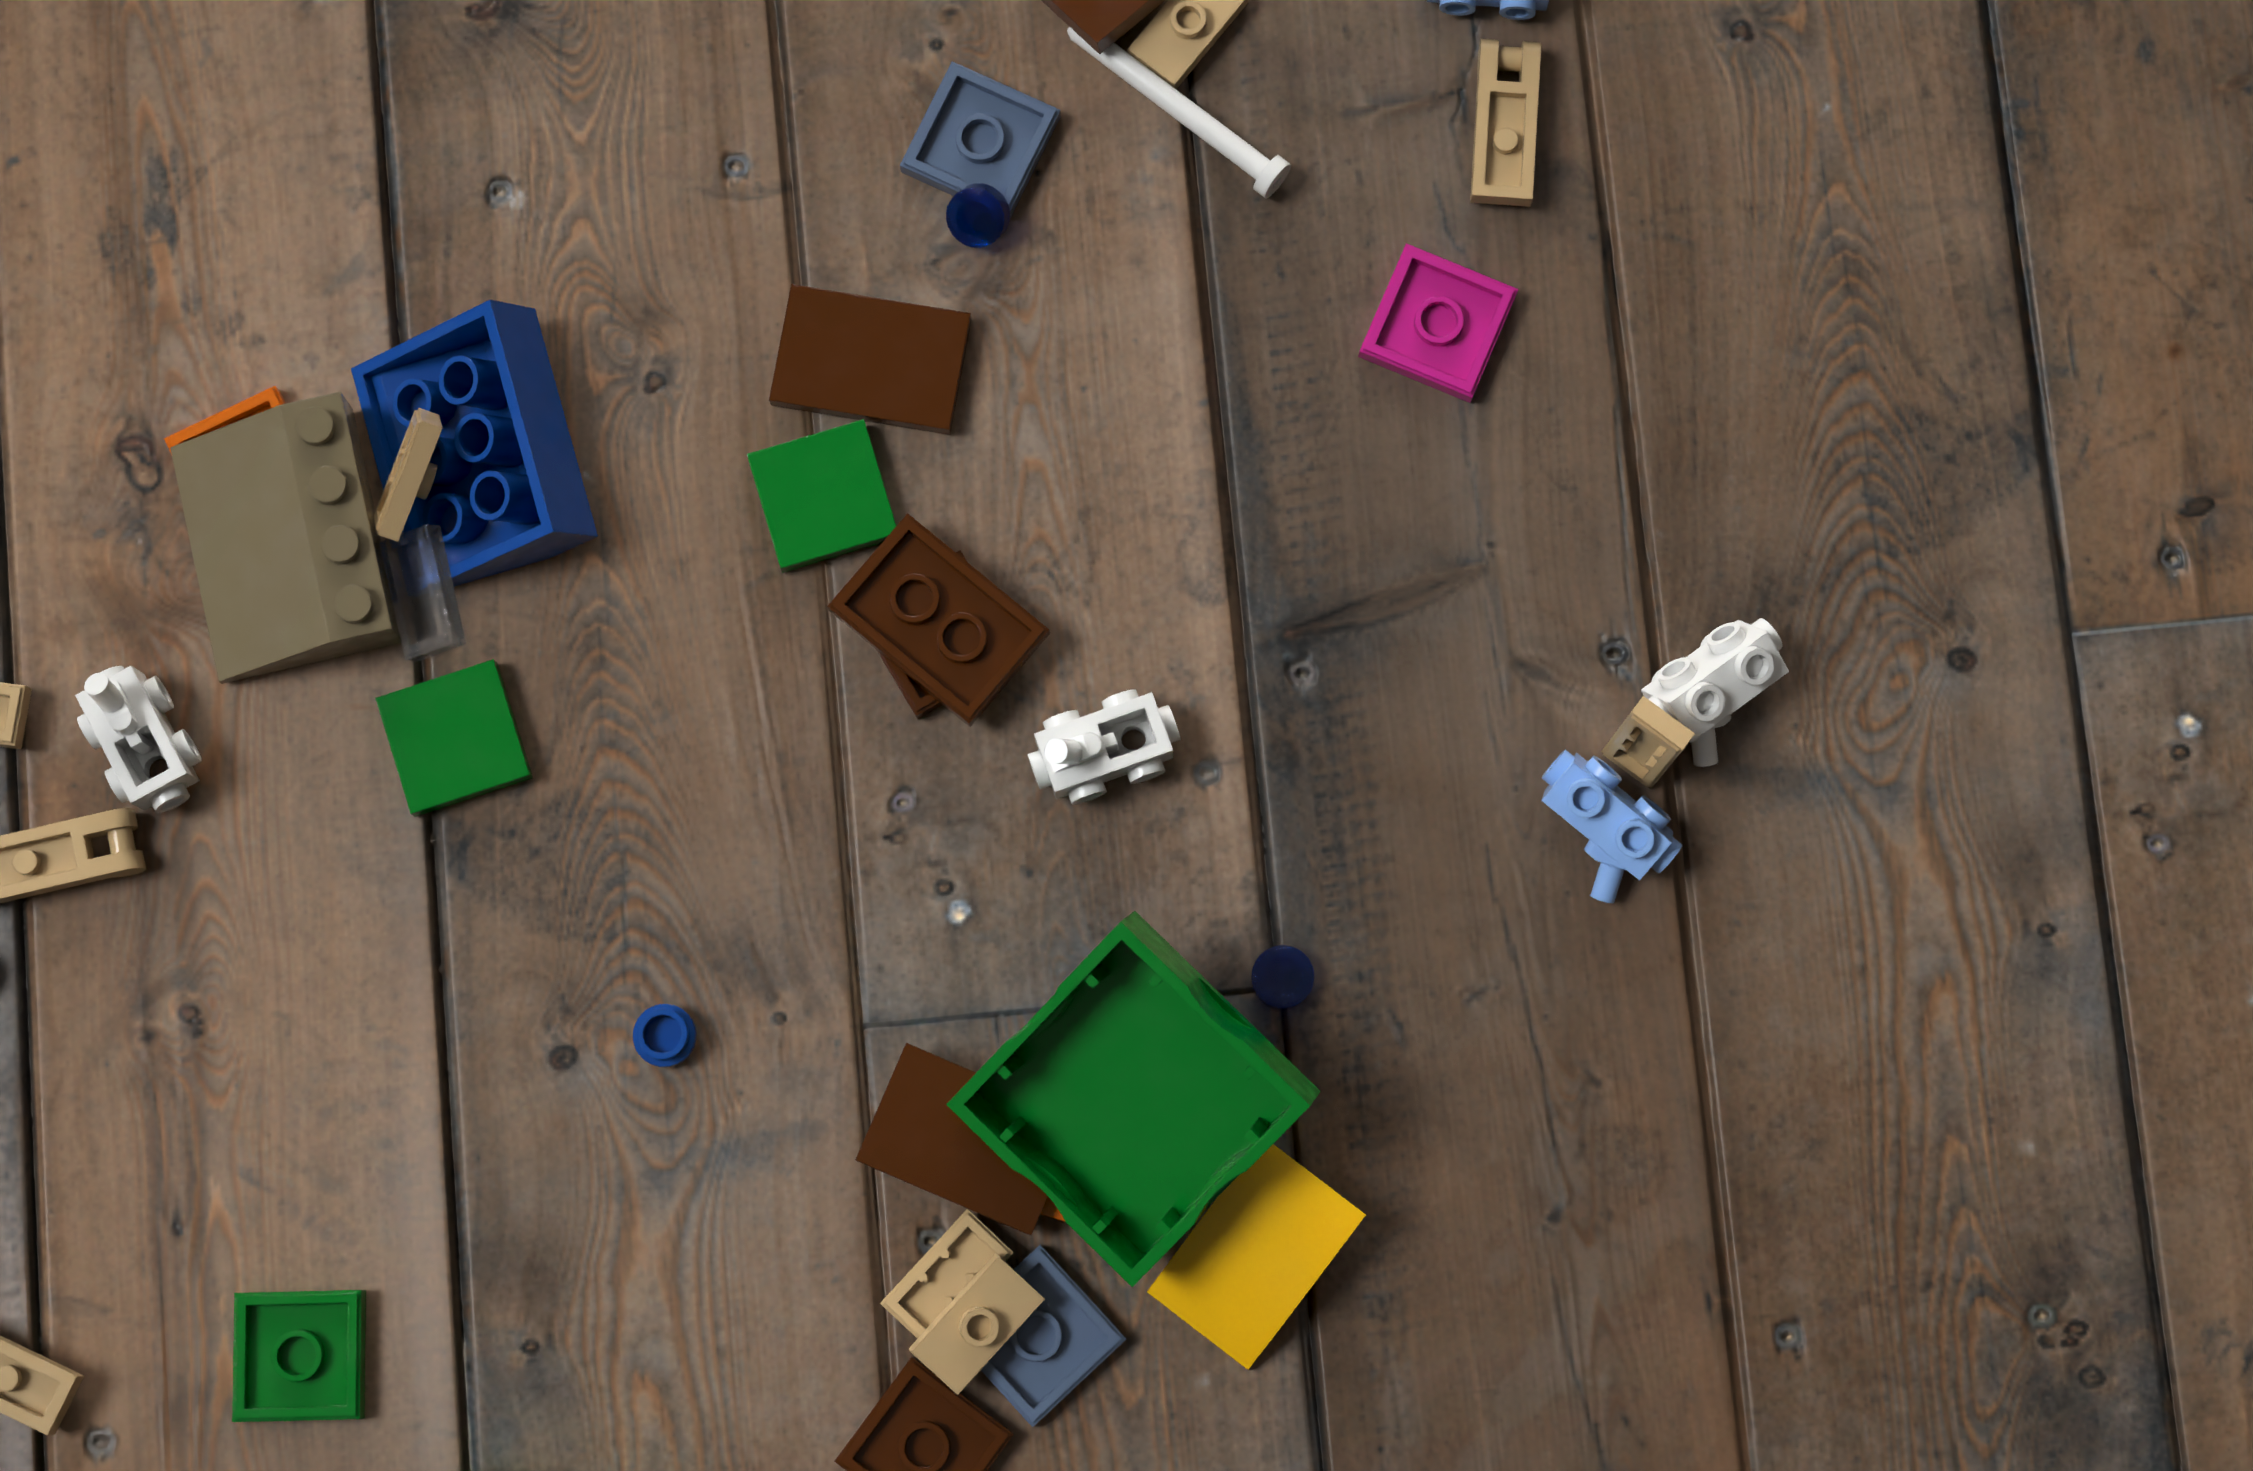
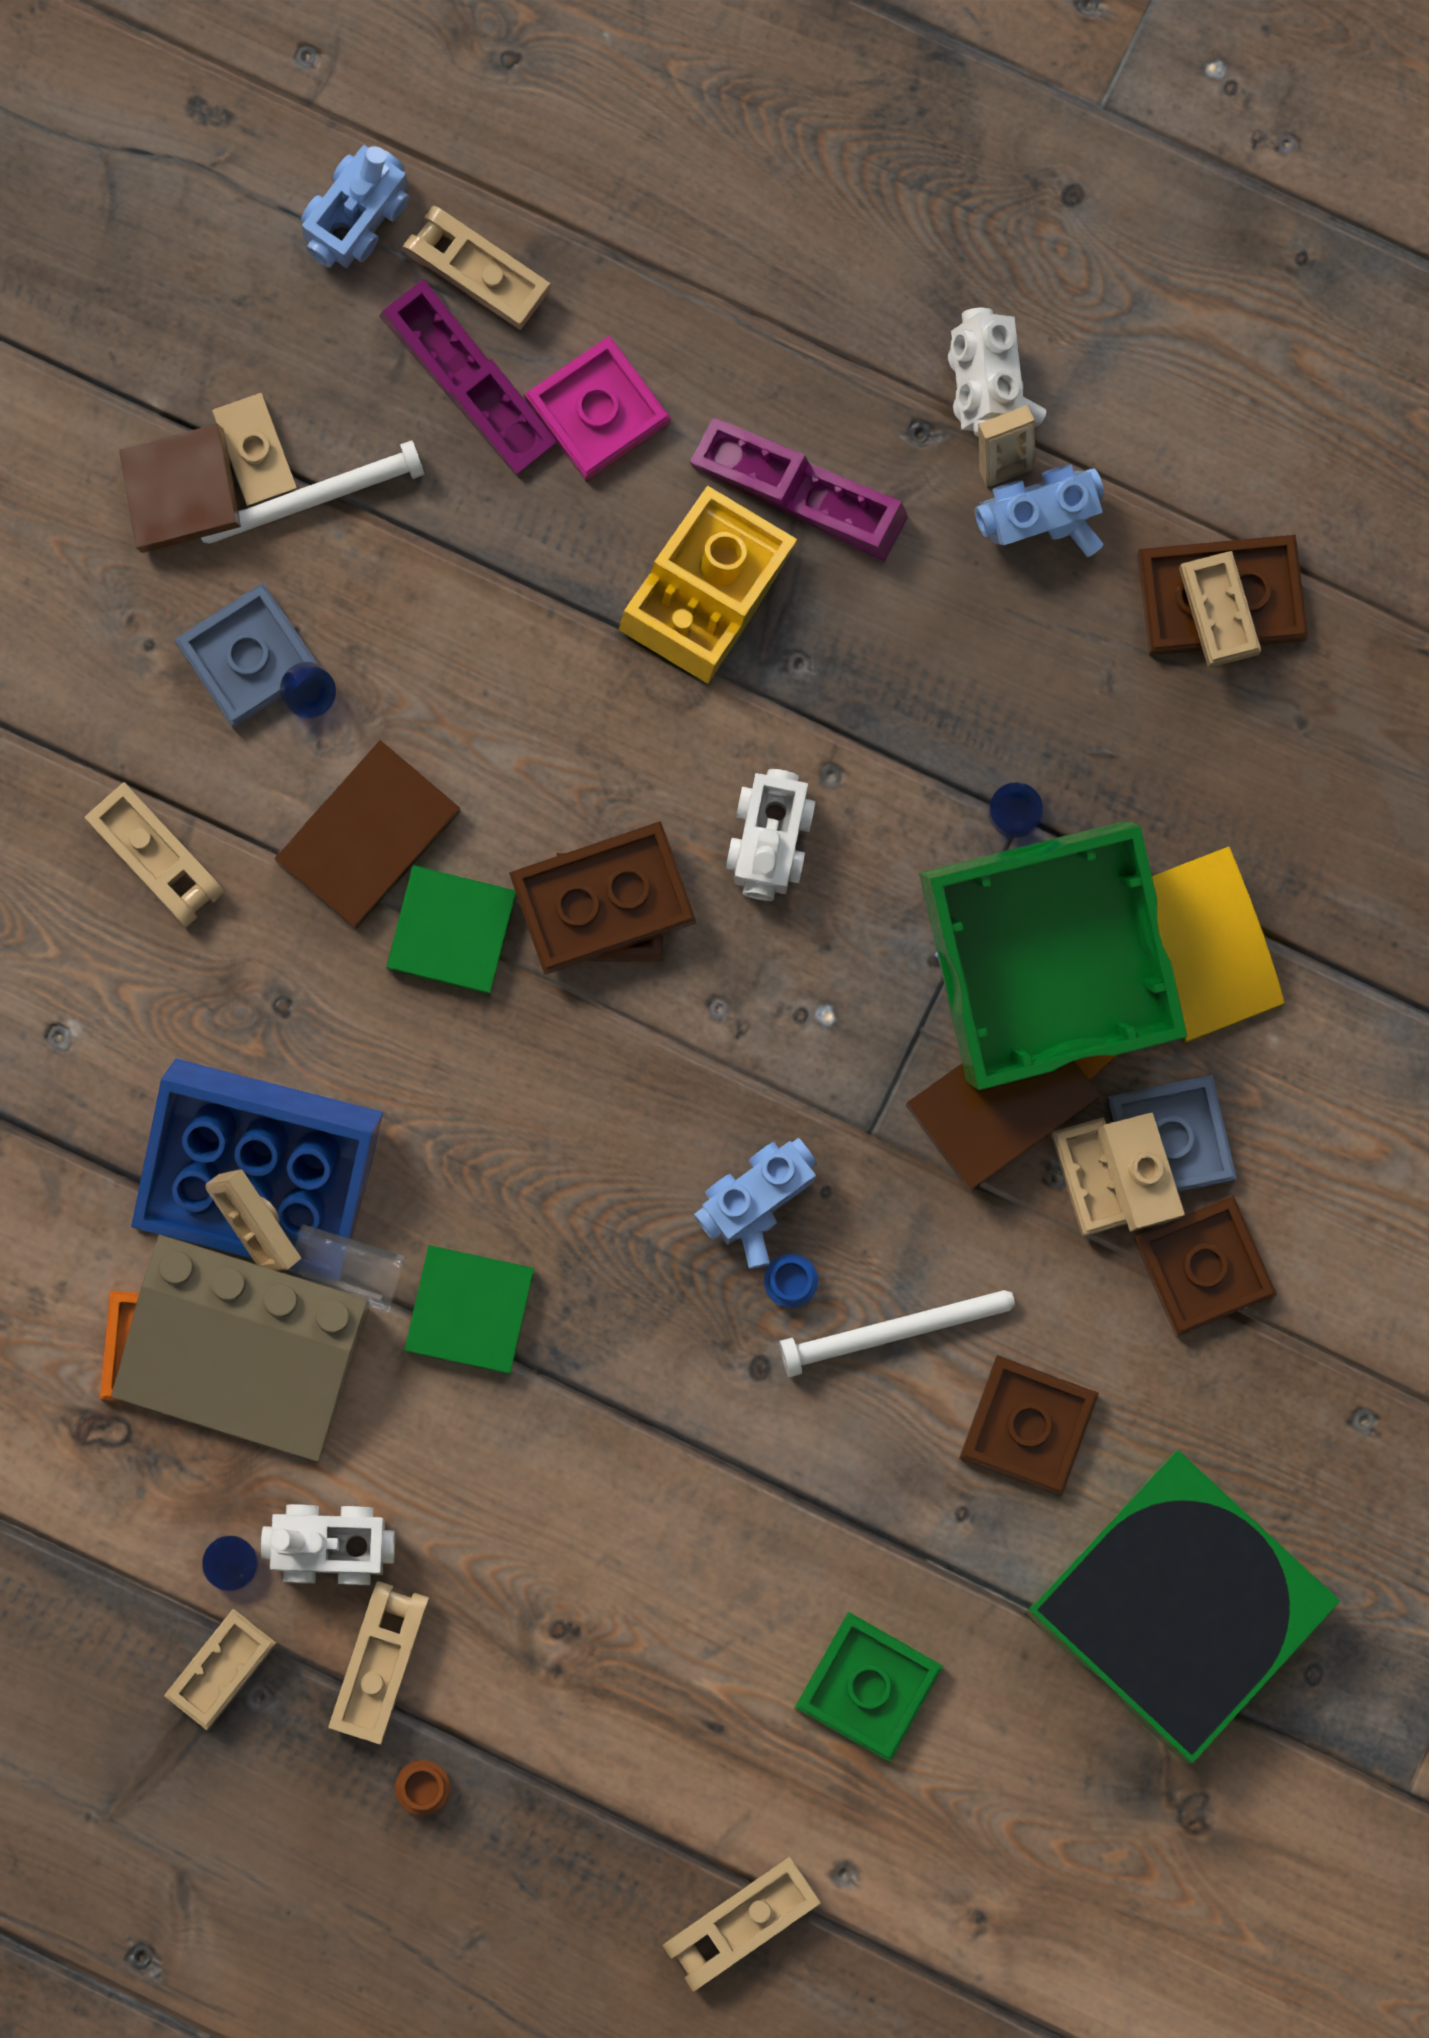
camera: 65 degrees left, 0 degrees up
(73, 656) = (230, 1563): none -> clear blue tile
(656, 1362) = (1029, 1425): none -> reddish brown tile
(673, 1167) = (892, 1330): none -> white bar
(710, 944) = (747, 1205): none -> light blue brick
(727, 168) = (153, 853): none -> tan plate
(1323, 533) = (707, 584): none -> yellow slope
(1390, 180) = (468, 376): none -> magenta slope
(1481, 569) = (800, 488): none -> magenta slope
(1614, 1060) = (1220, 609): none -> tan plate
(1637, 1056) = (1268, 577): none -> reddish brown tile

